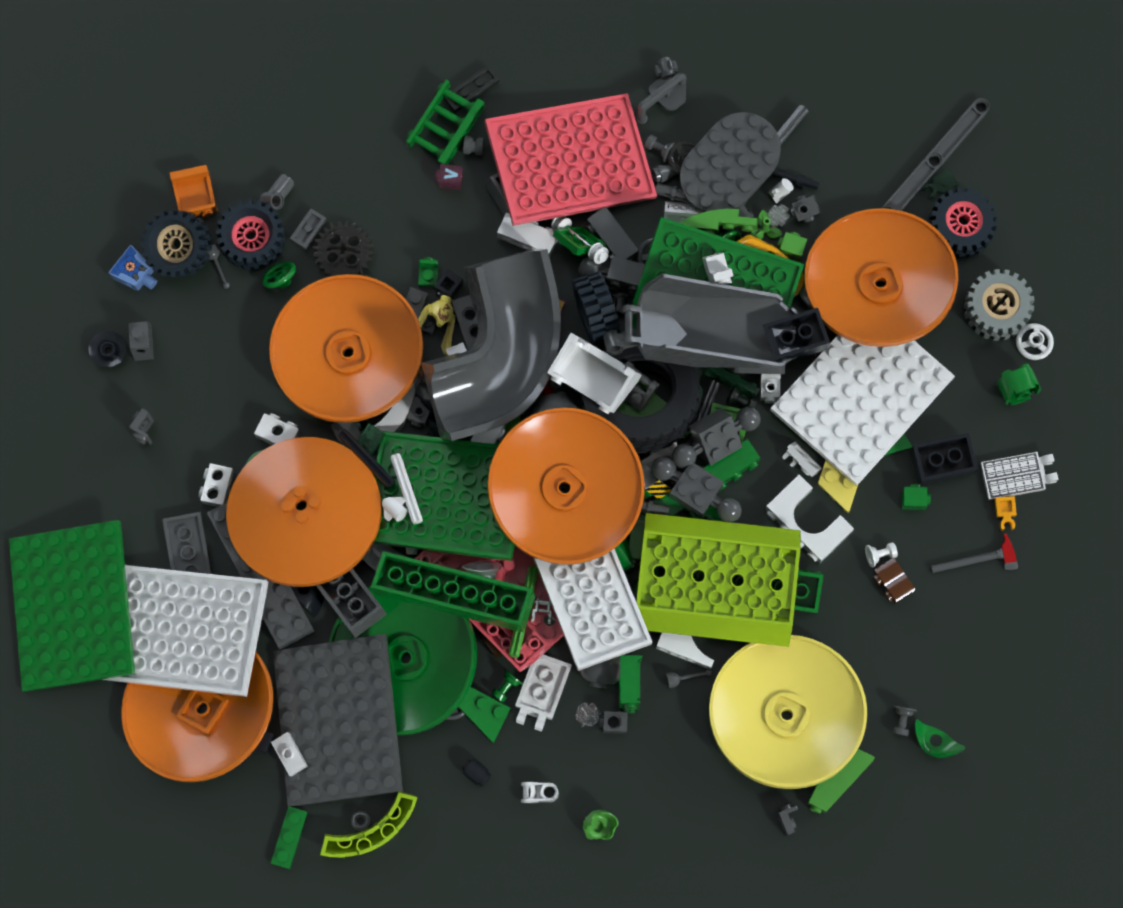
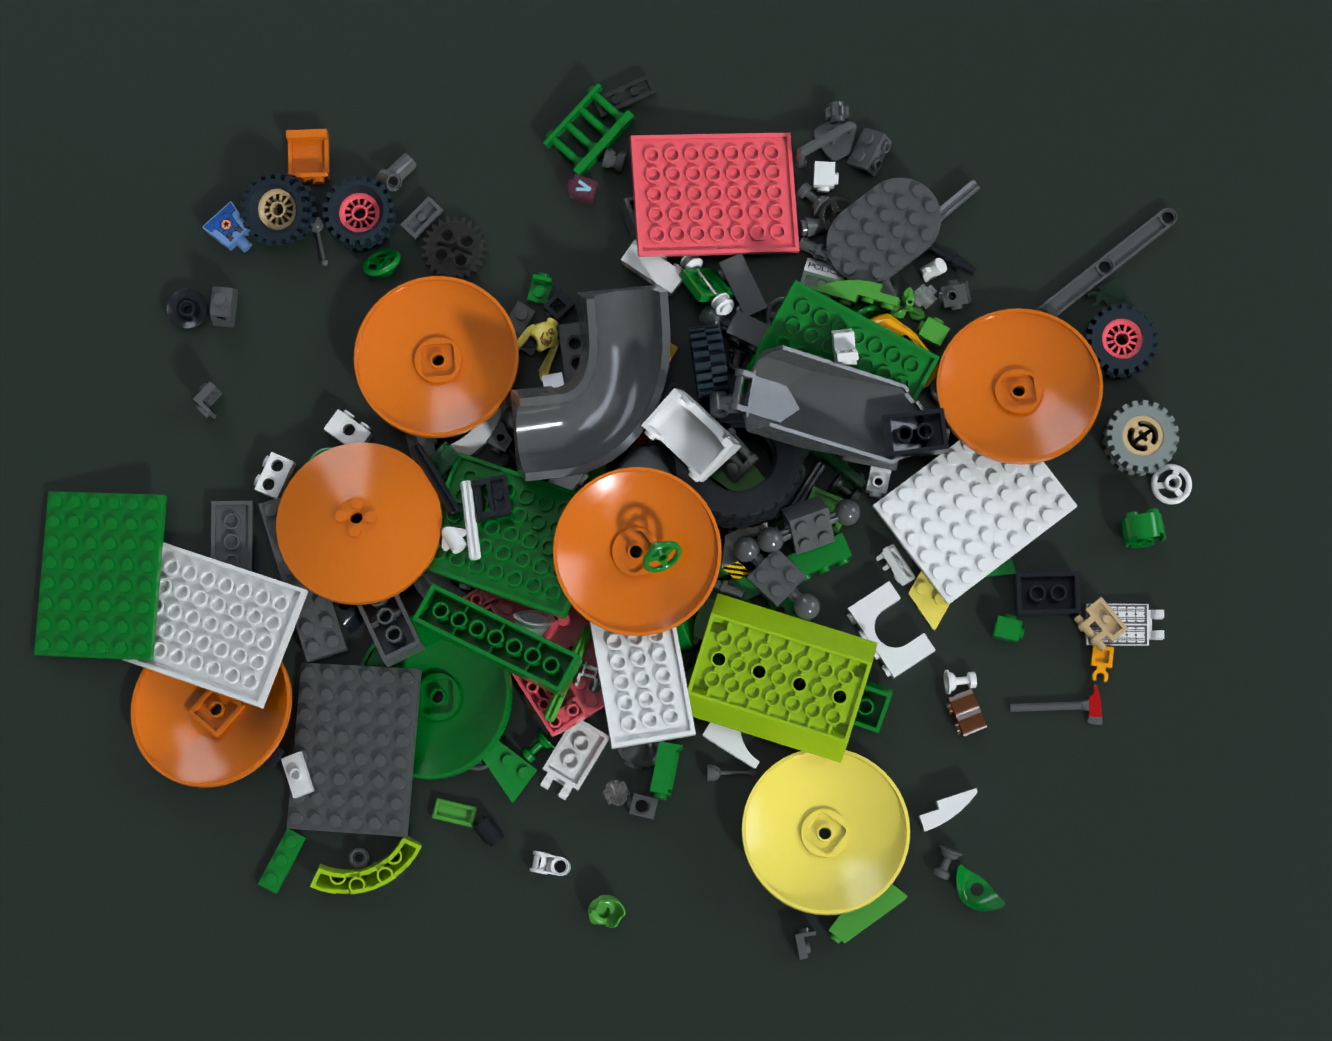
camera: 15 degrees right, 5 degrees up
(428, 464) = (498, 498): none -> black plate
(441, 762) = (454, 812): none -> bright green tile
(588, 482) = (660, 553): none -> green piece
(666, 126) = (824, 176): none -> white brick
(702, 97) = (870, 151): none -> dark grey bracket
(892, 672) = (946, 809): none -> white slope
(1003, 473) = (1105, 619): none -> tan plate

